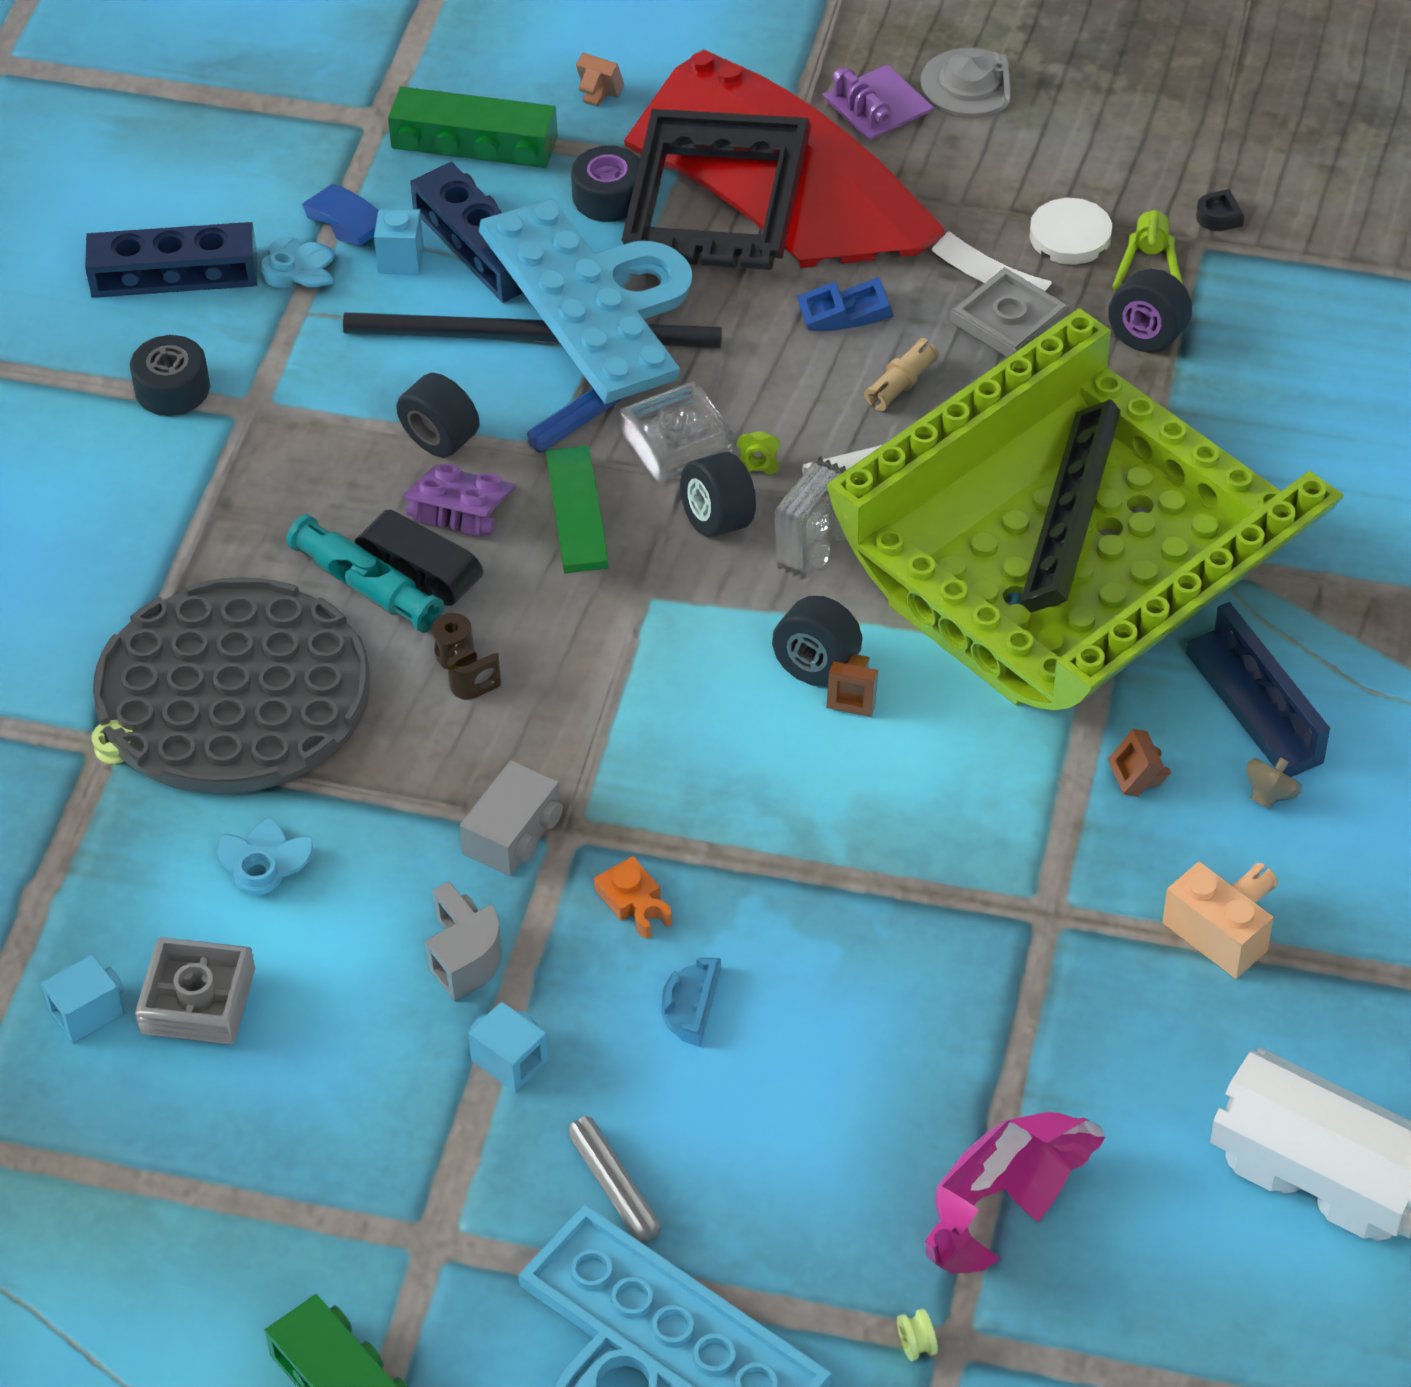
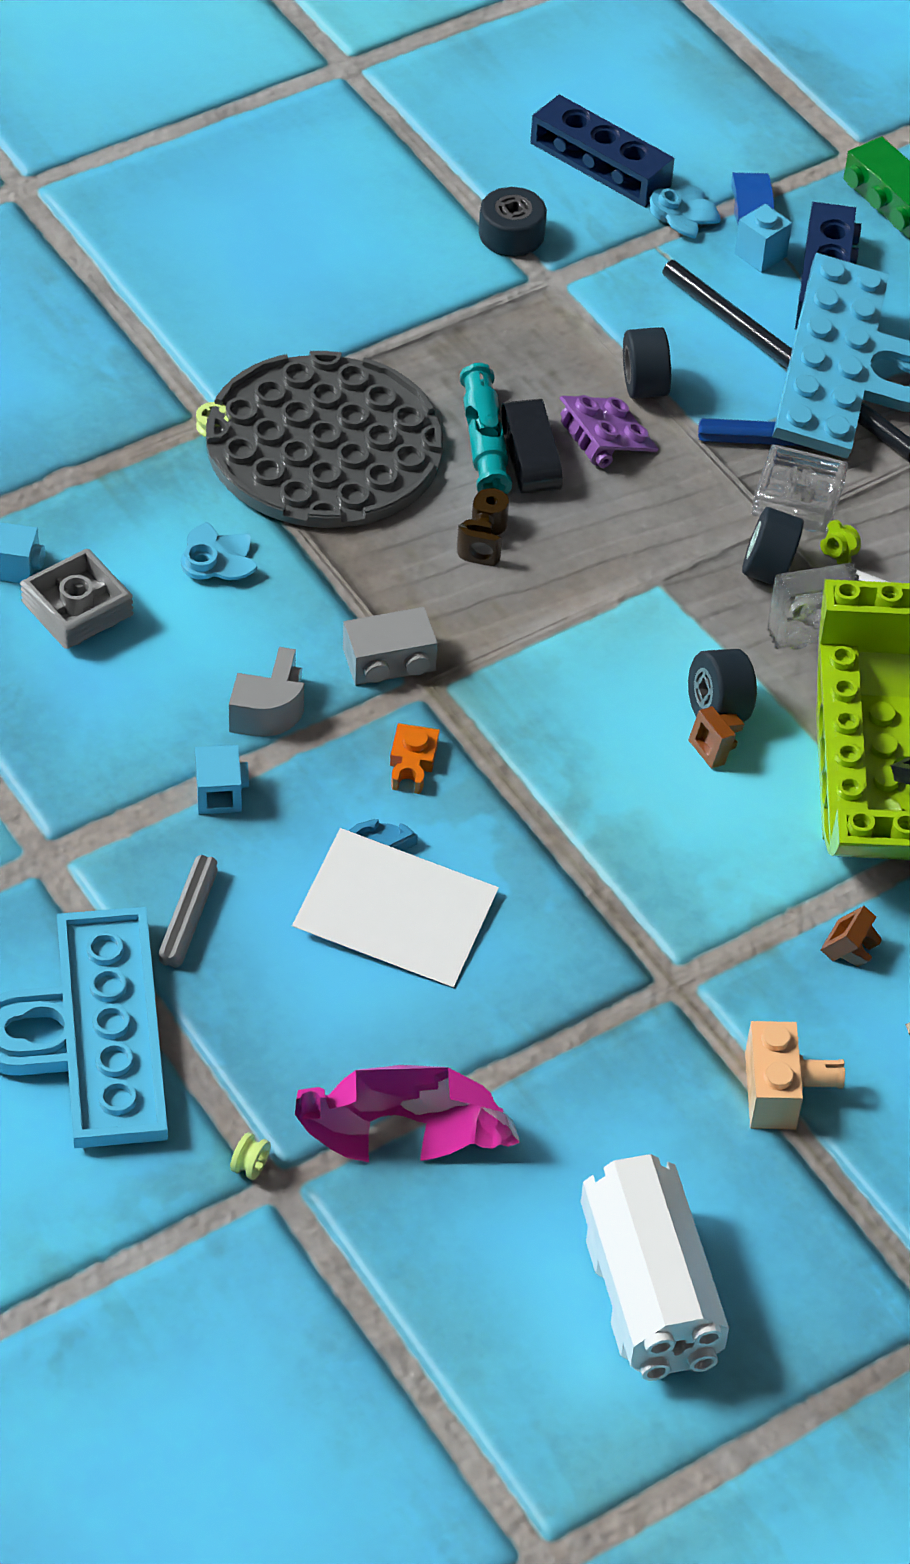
camera: 40 degrees right, 0 degrees up
(576, 509) = (668, 488): green slope -> none
(774, 1032) = (396, 907): none -> white sticker

